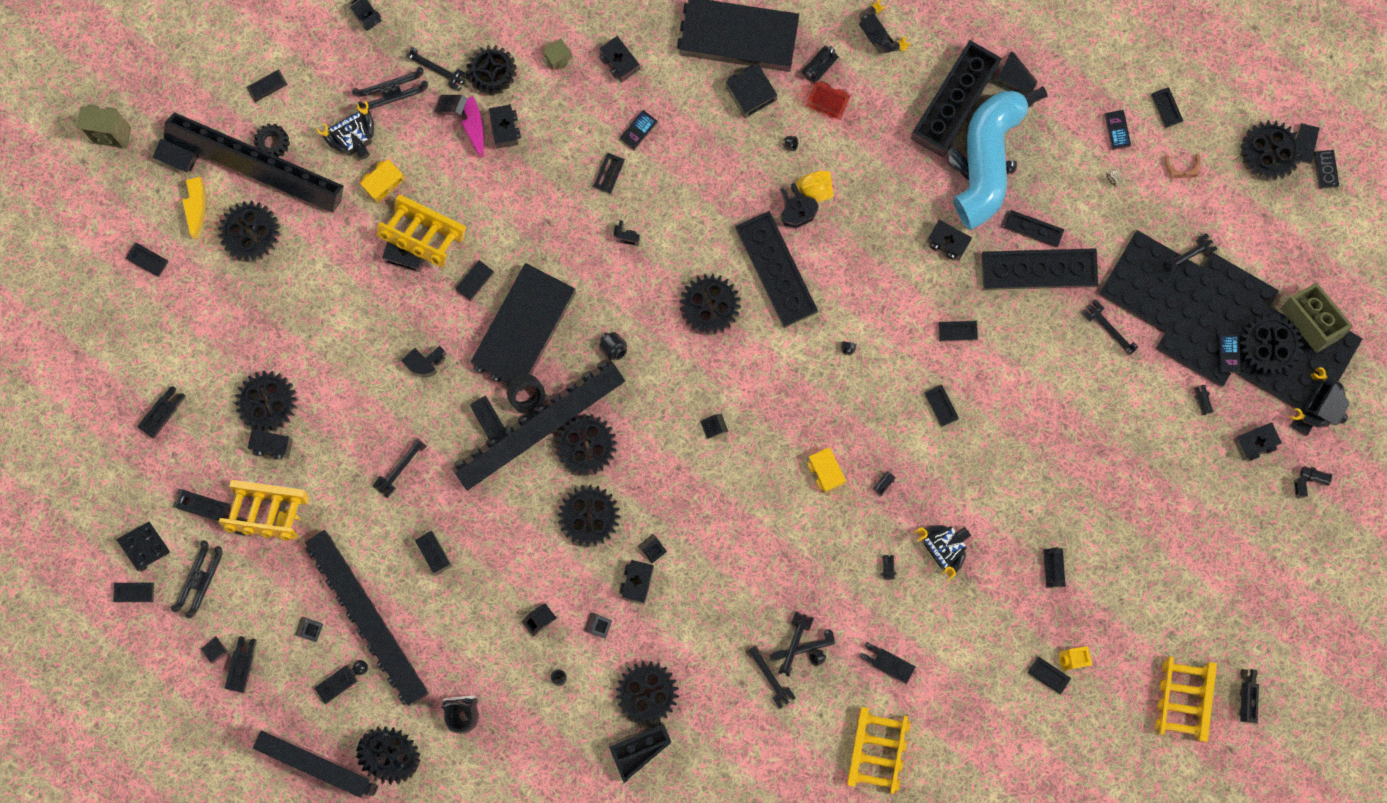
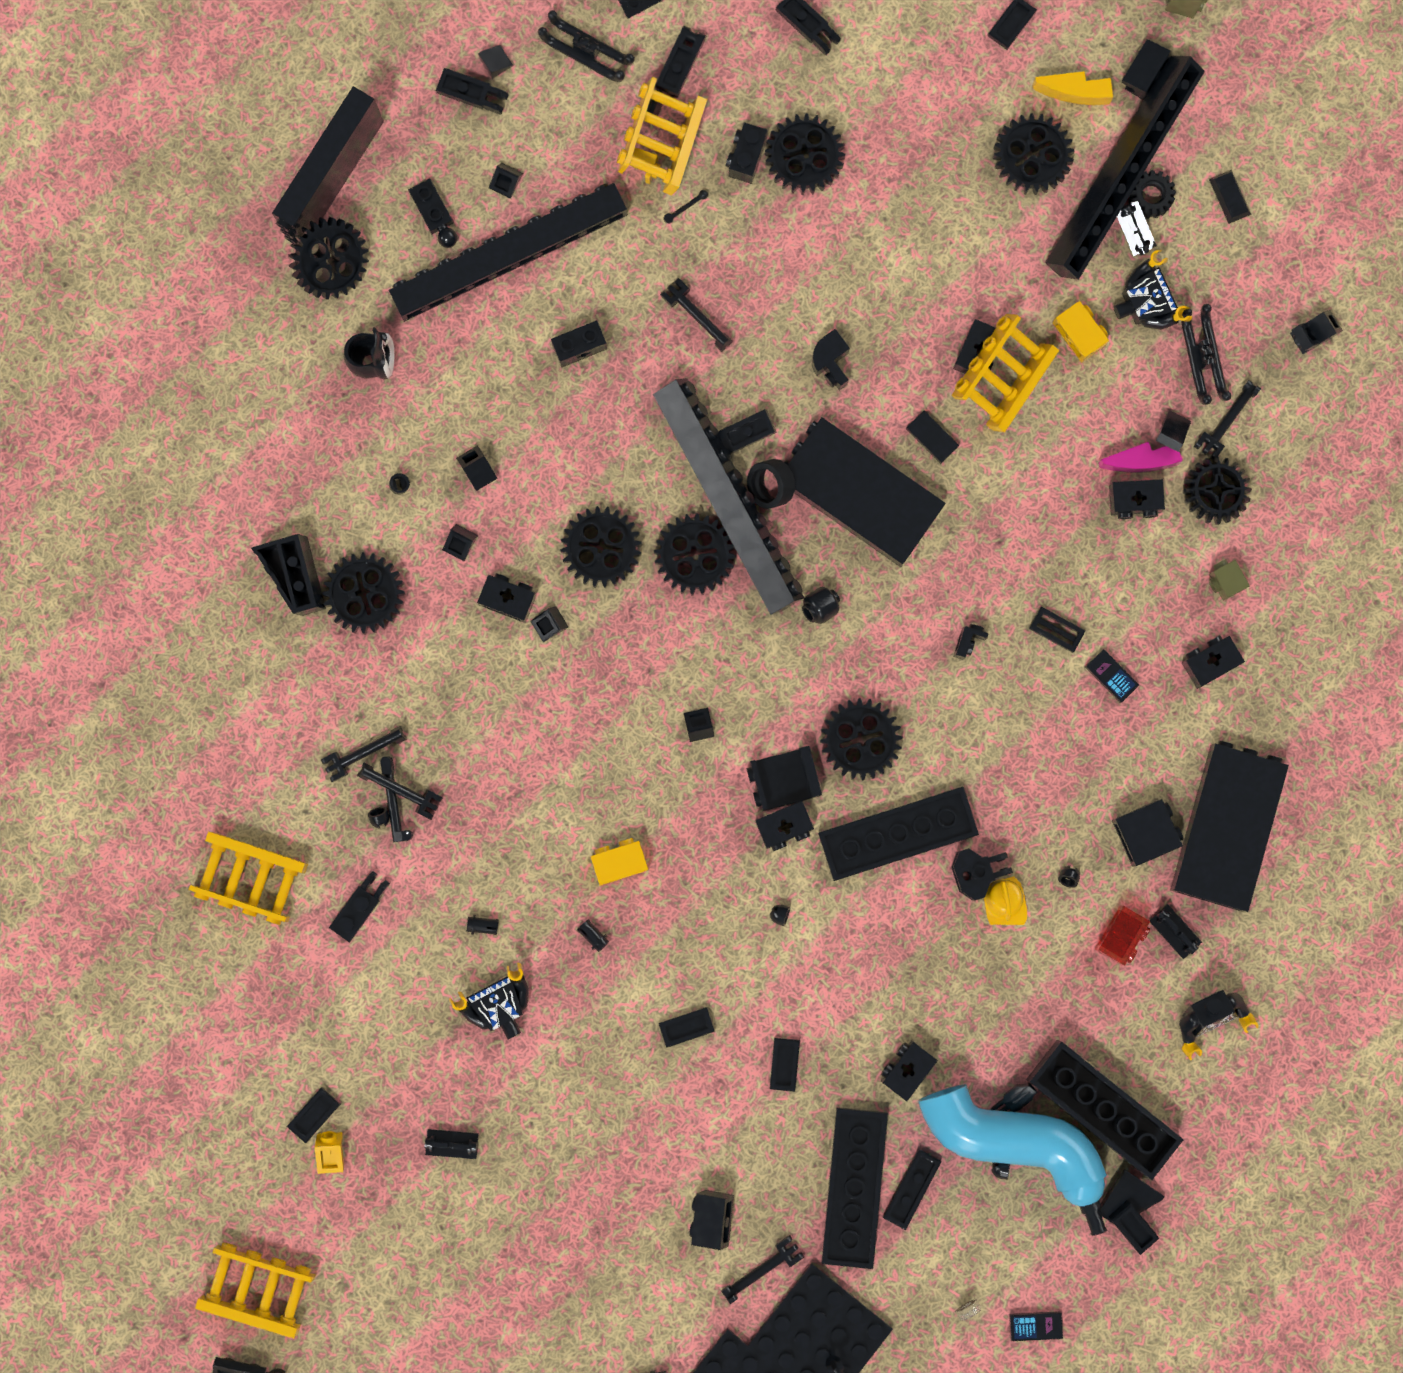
camera: 95 degrees right, 5 degrees up
(300, 149) = (1136, 229): none -> hinge
(326, 499) = (668, 218): none -> black hinge
(746, 356) = (784, 779): none -> black panel
(782, 362) = (794, 814): none -> black brick
(1036, 69) = (1133, 1227): none -> black tile
(1079, 367) = (711, 1219): none -> black brick

